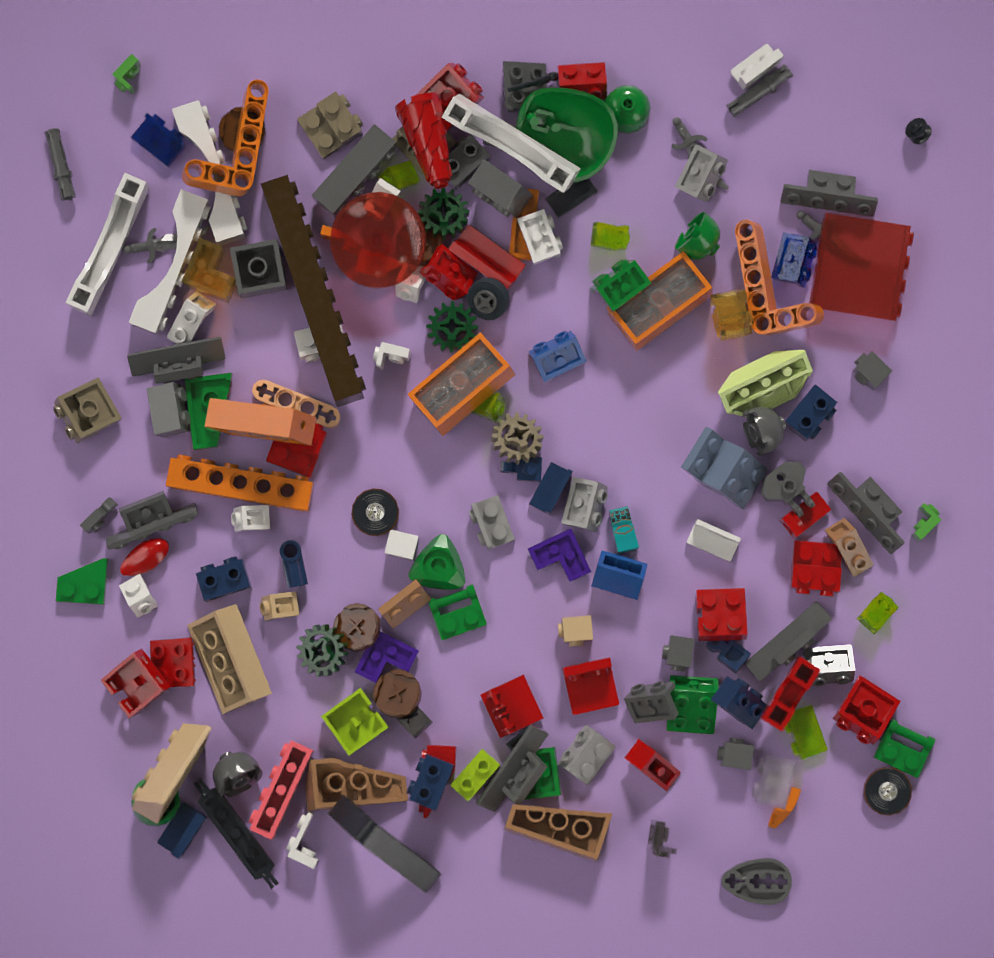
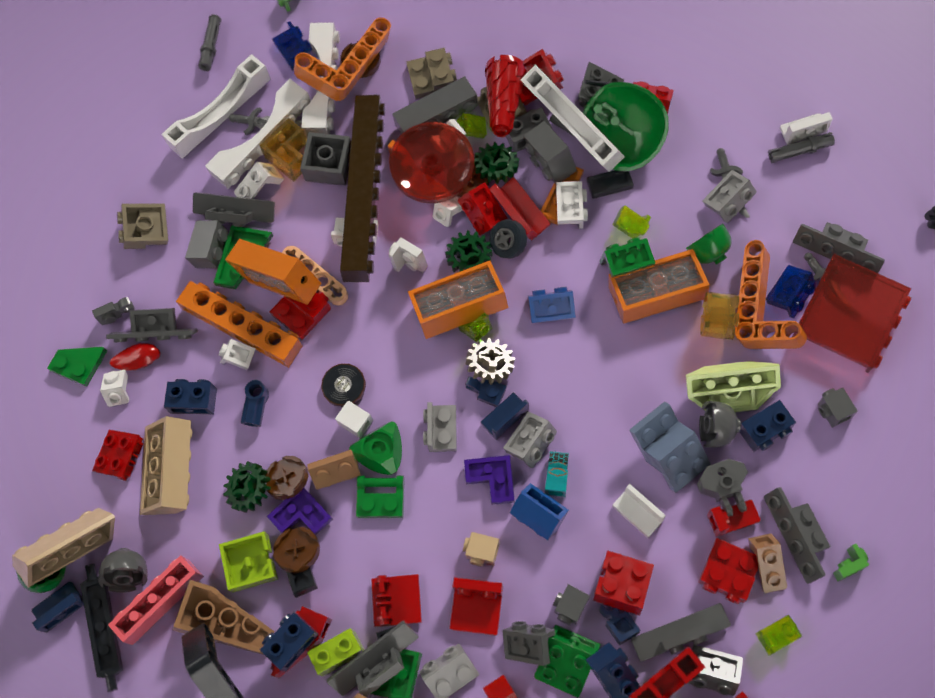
camera: 30 degrees right, 15 degrees down
(139, 681) = (80, 454): red piece -> none
(279, 606) = (228, 436): tan bracket -> none
(305, 855) = (143, 665): white bracket -> none
(633, 118) = (684, 130): green cylinder -> none

